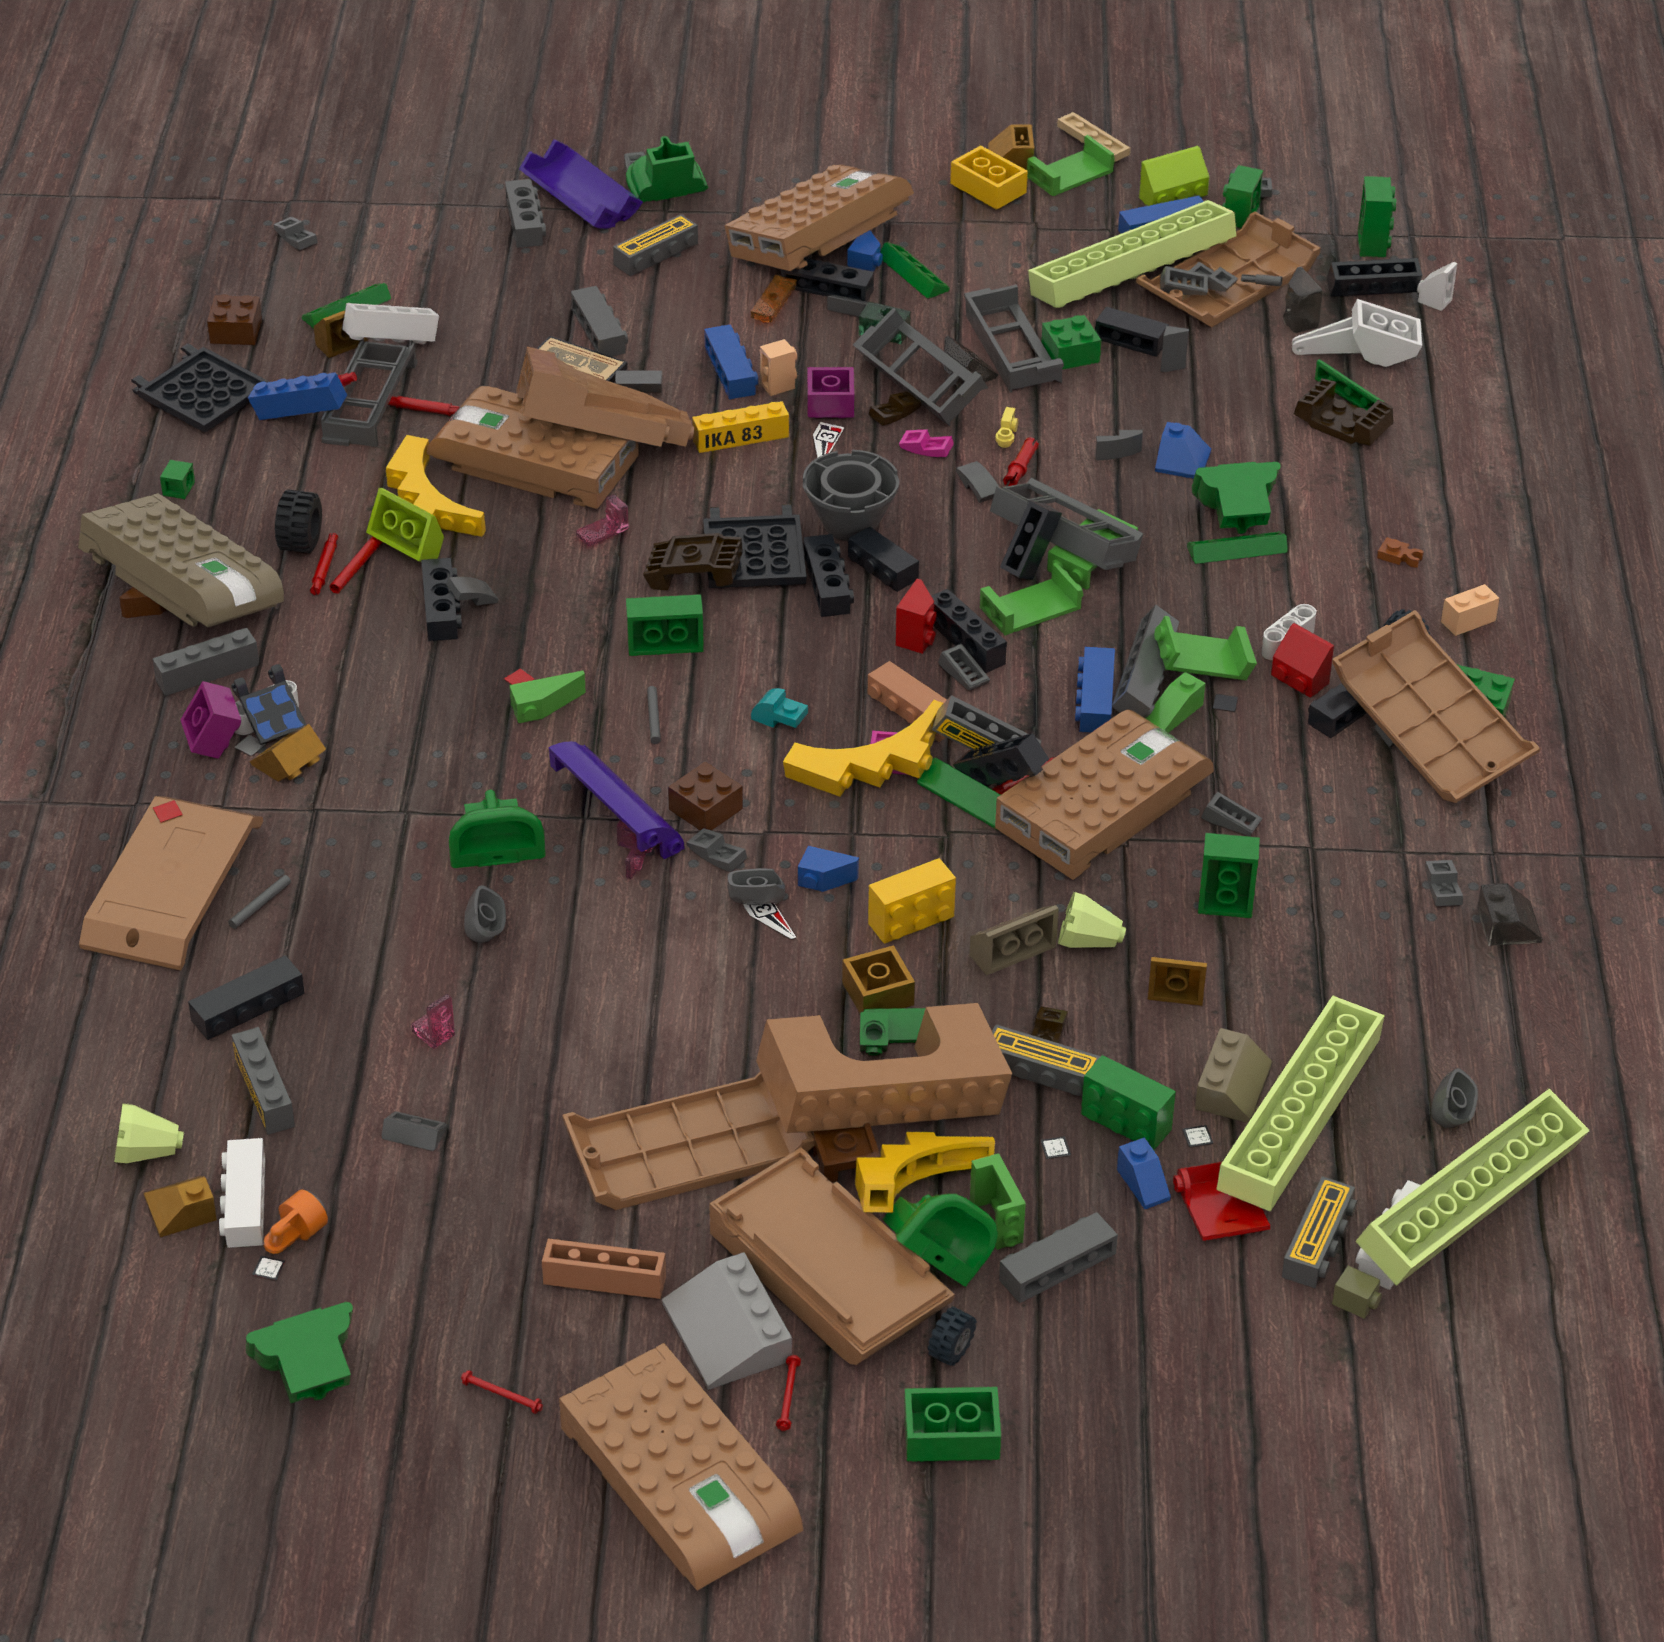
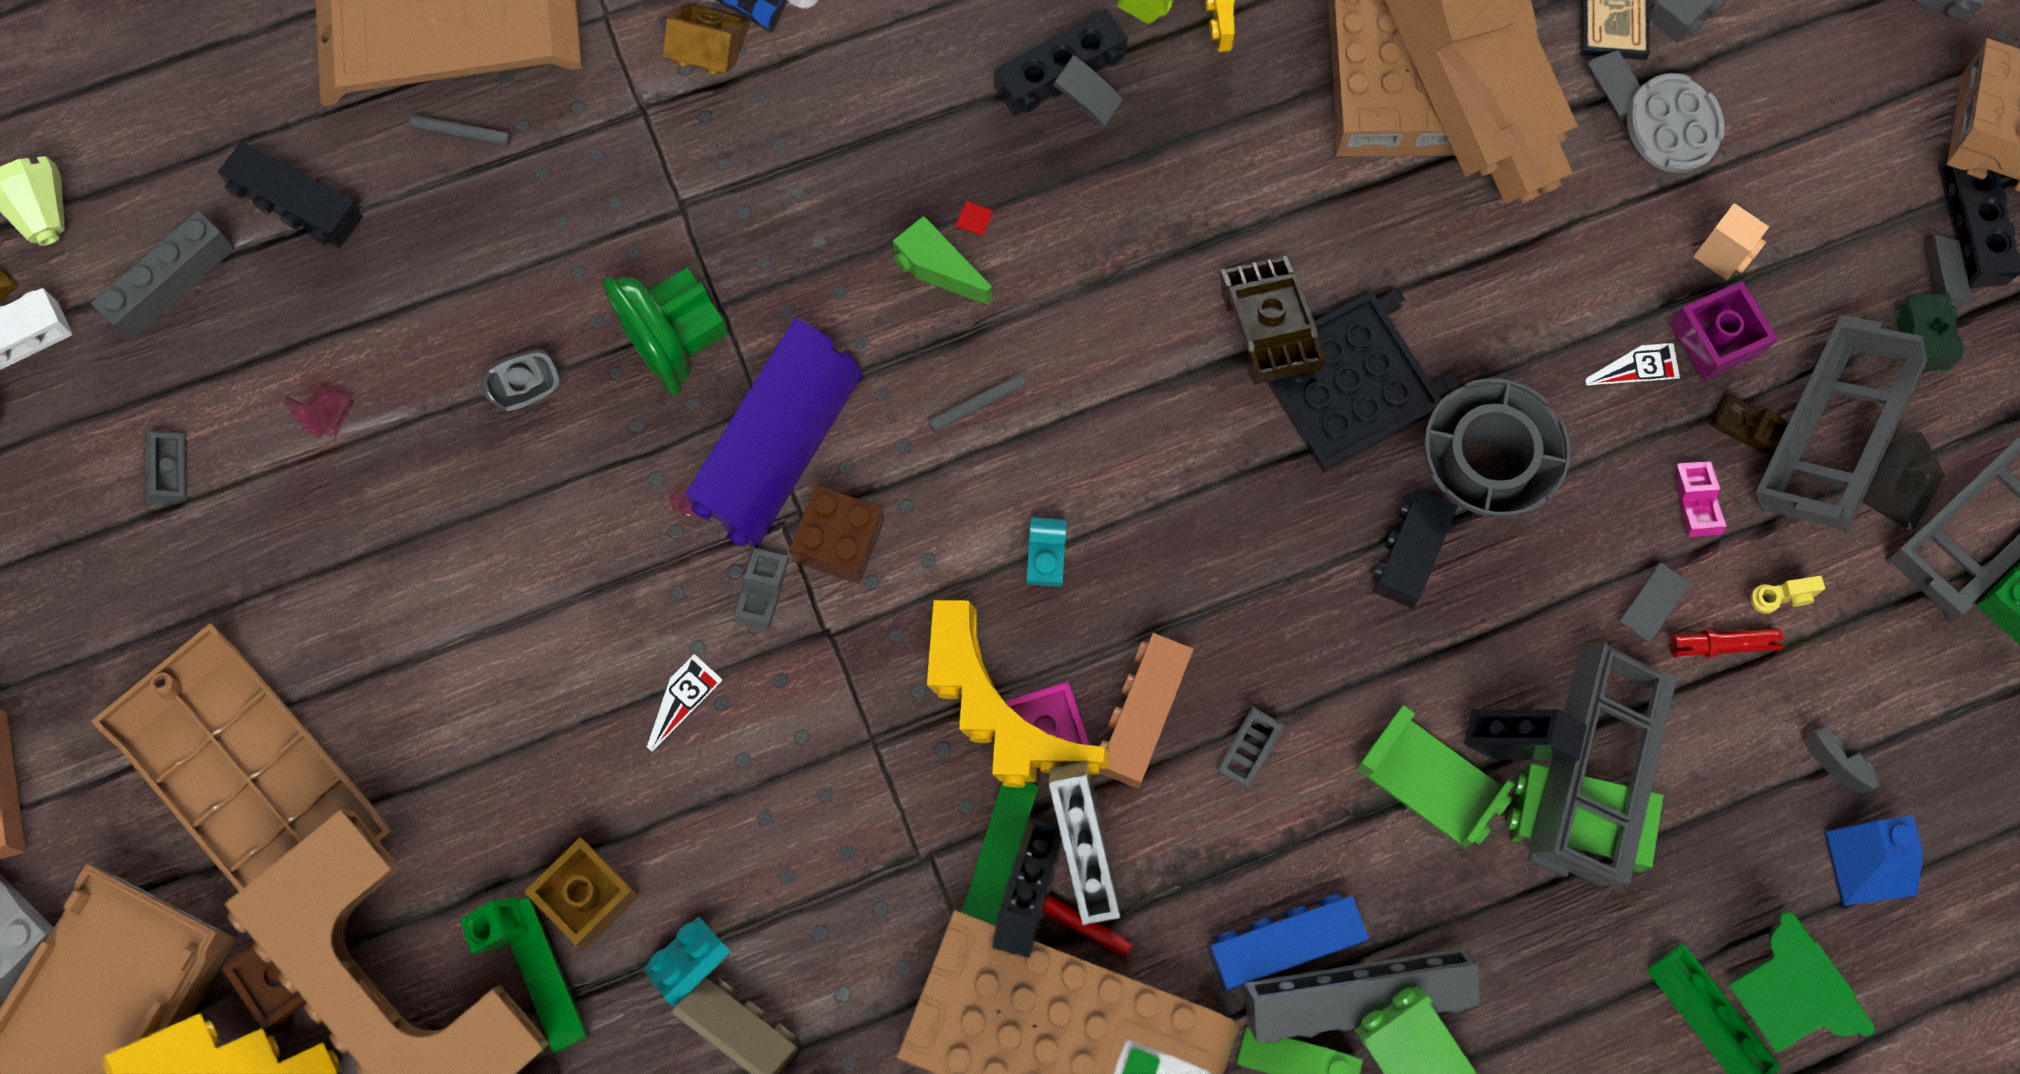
camera: 65 degrees right, 30 degrees up
(606, 527) = (1299, 181): clear pink bracket -> none
(664, 625) = (1126, 340): green brick -> none
(681, 366) = (1675, 123): none -> light grey tile
(730, 361) = (1722, 176): blue brick -> none
(740, 427) = (1588, 251): yellow brick -> none
(755, 886) = (699, 667): dark grey piece -> none
(773, 299) = (1895, 168): clear orange tile -> none
(826, 869) = (771, 734): blue slope -> none
(827, 575) = (1382, 456): black brick -> none
(911, 900) = (738, 875): yellow brick -> none
(915, 619) = (1297, 645): red slope -> none
(954, 943) = (685, 961): none -> teal plate
(965, 627) = (1319, 719): black brick -> none

